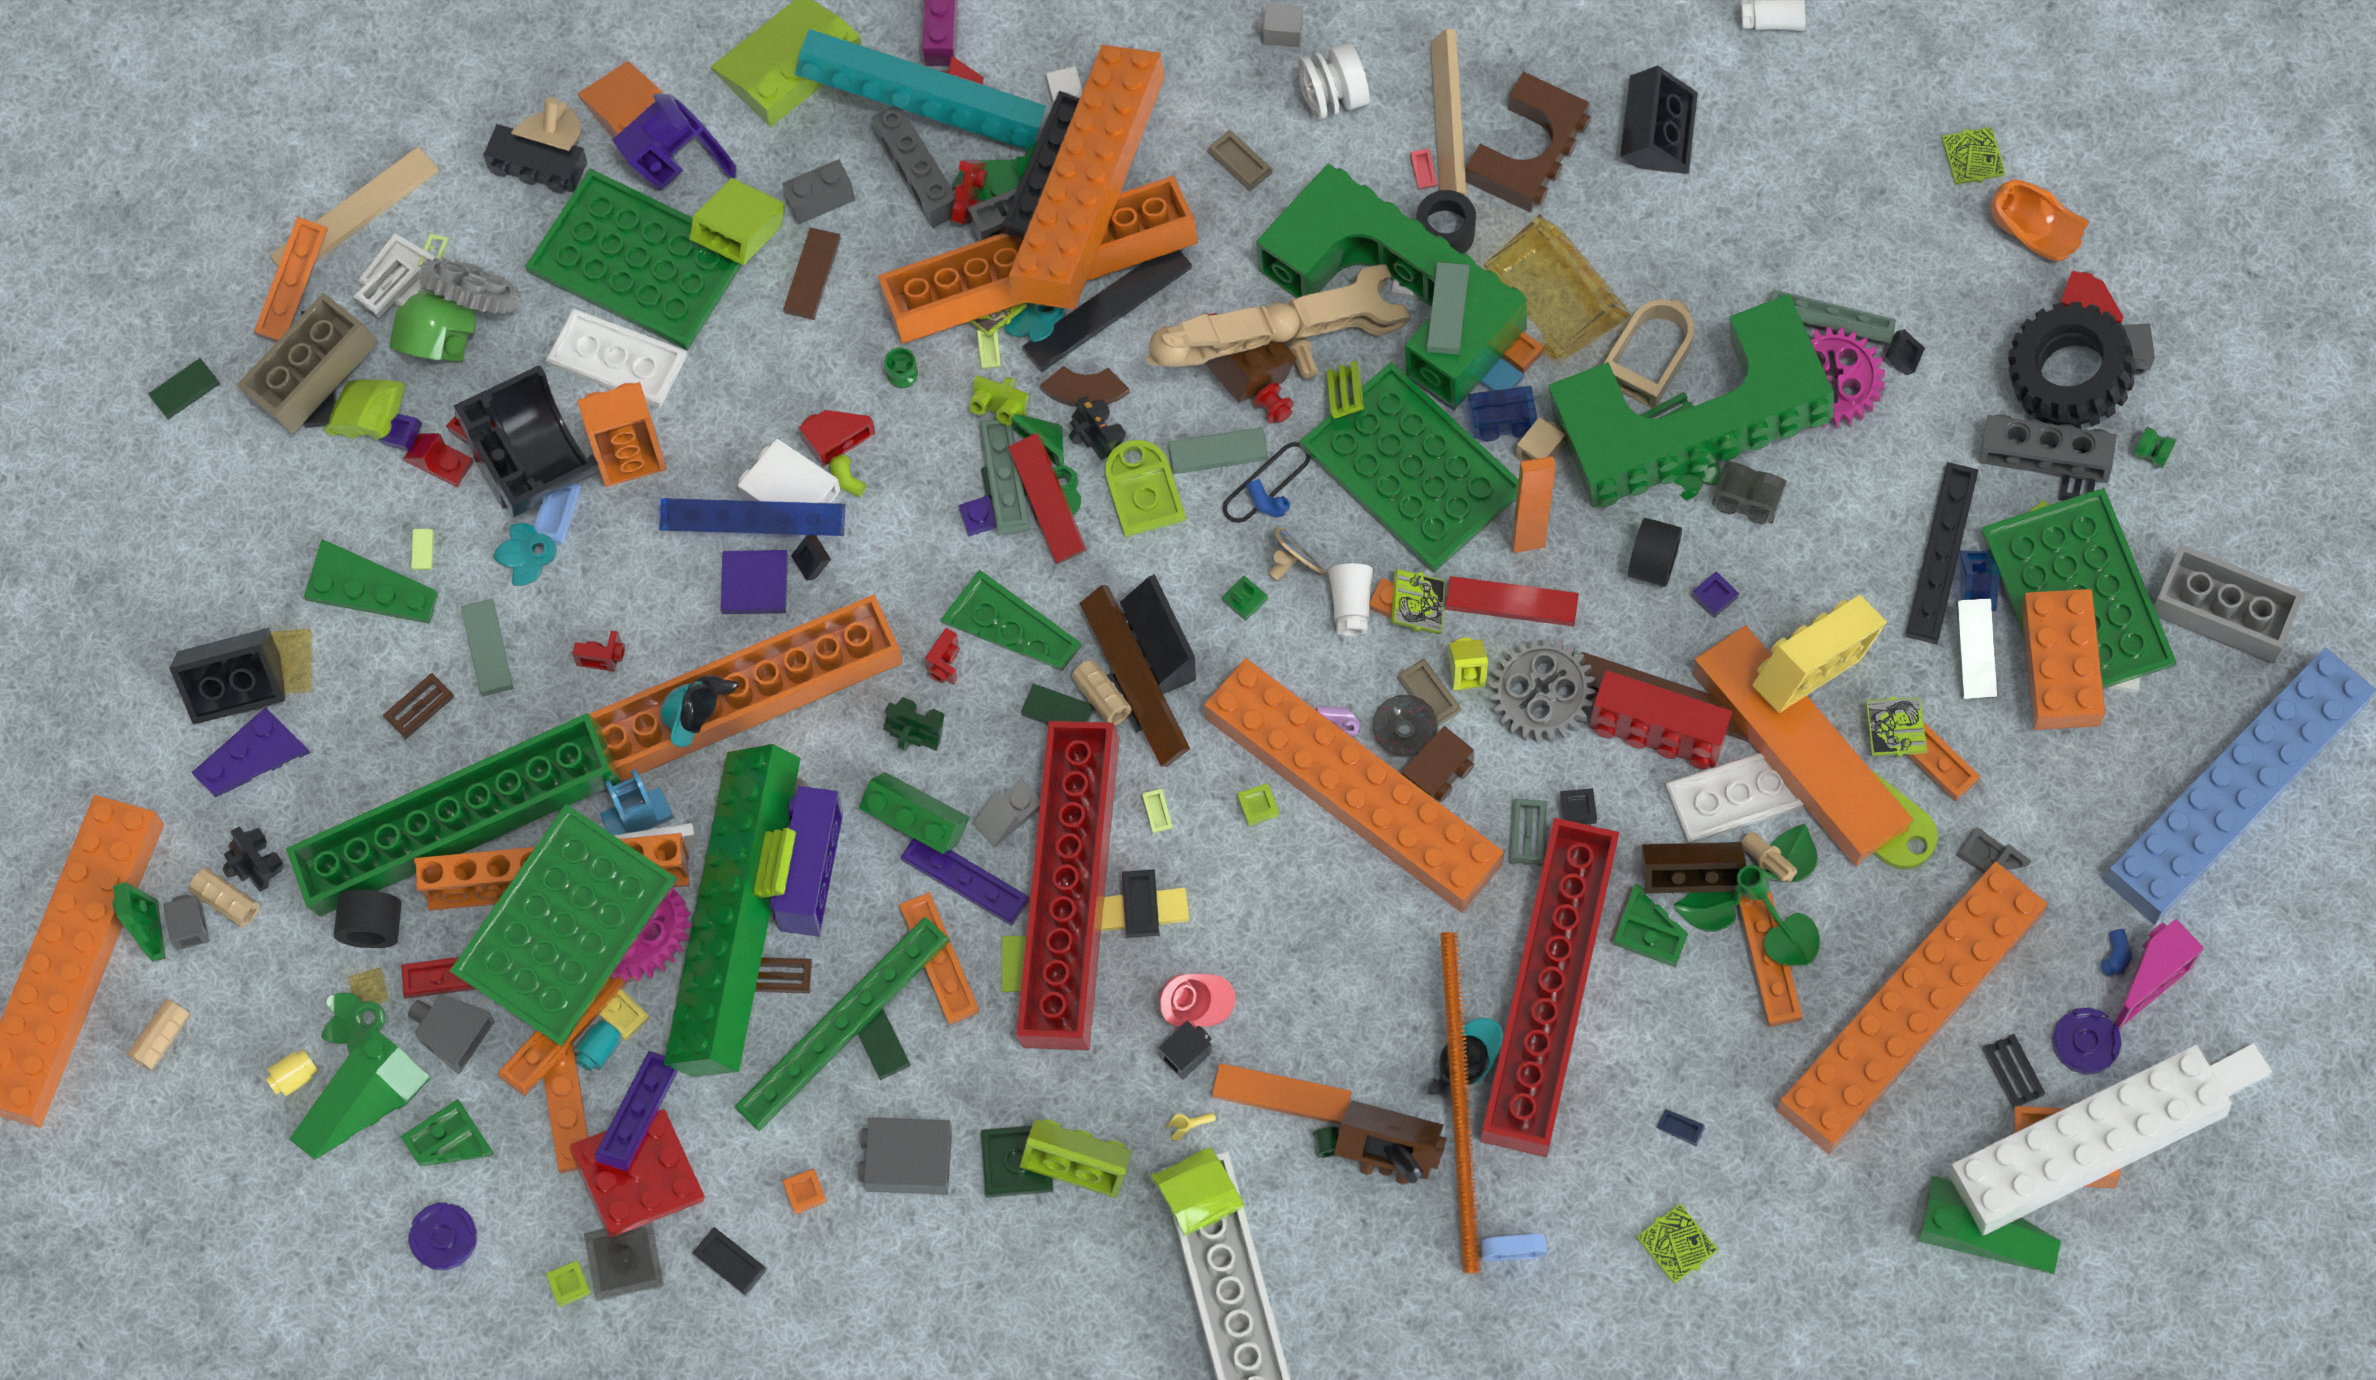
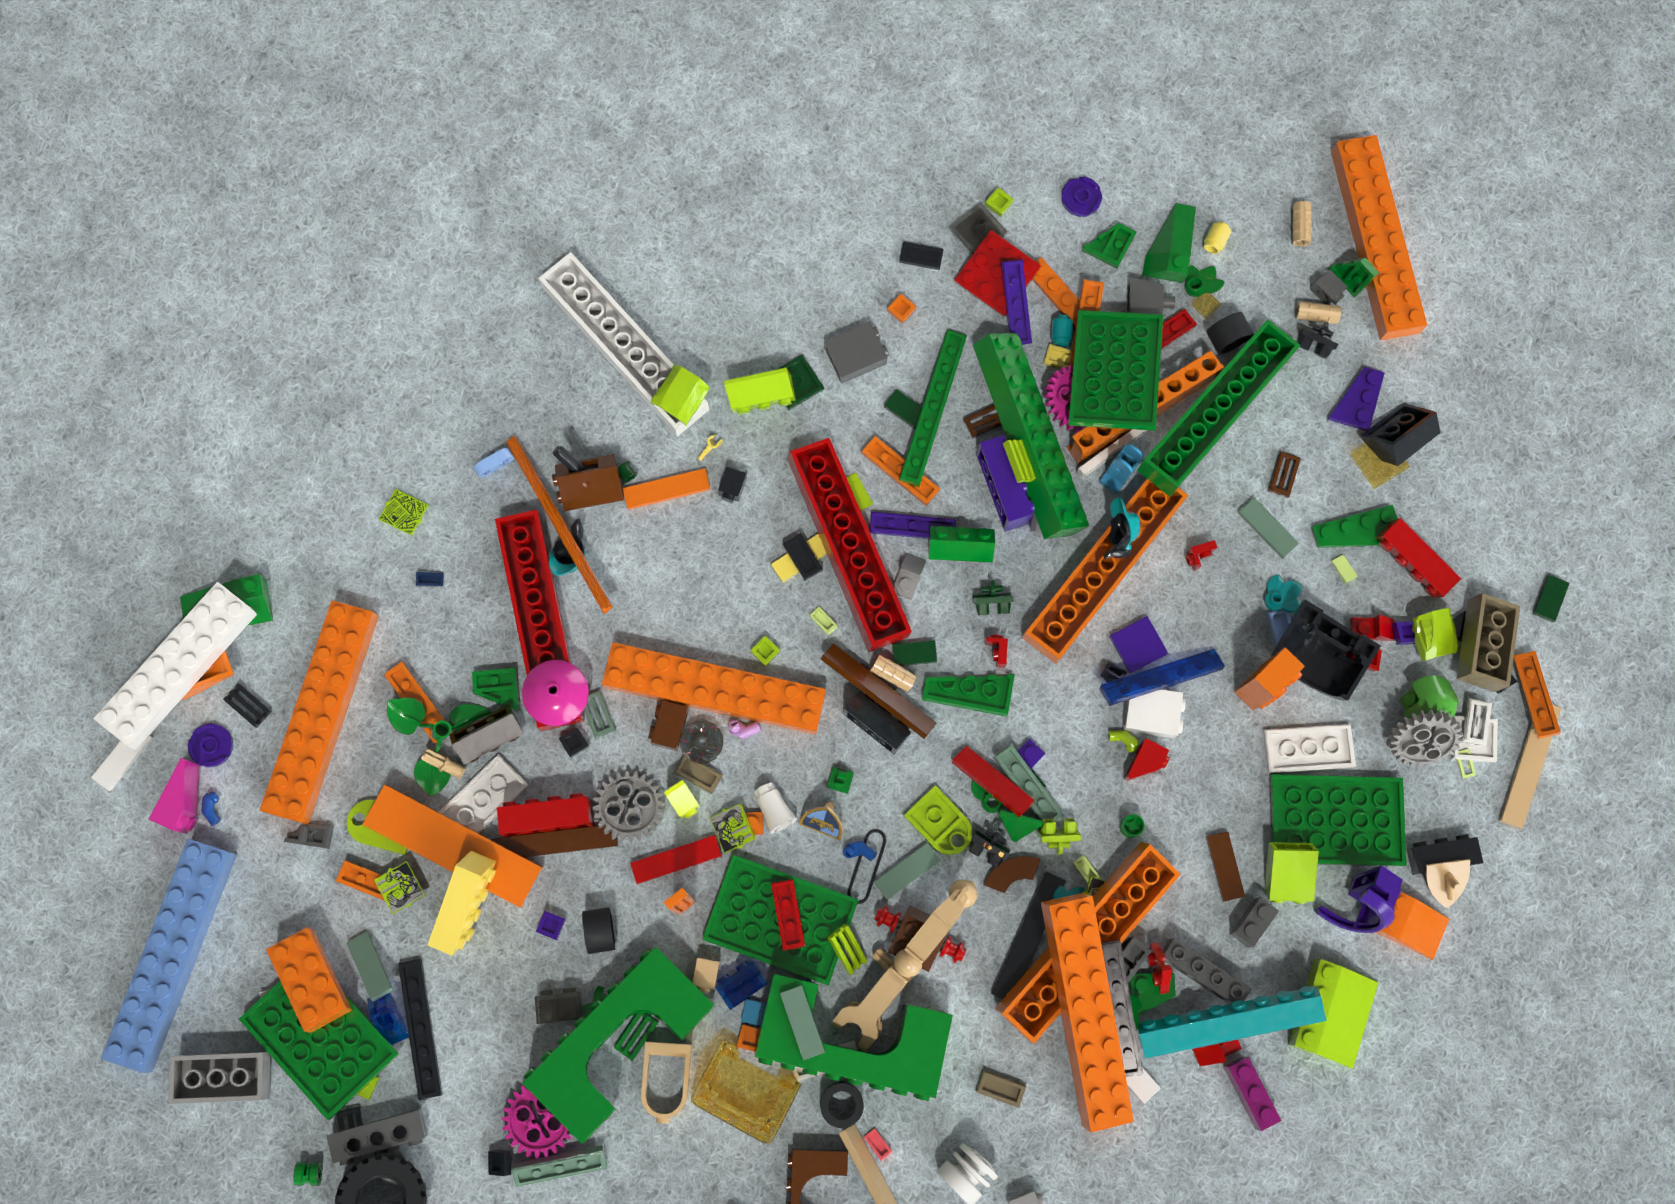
camera: 145 degrees right, 10 degrees up
(321, 508) = (1417, 558): none -> red brick
(1197, 999) = (743, 513): coral piece -> none
(1400, 462) = (788, 915): none -> red tile
(1568, 883) = (563, 705): none -> dark pink dish

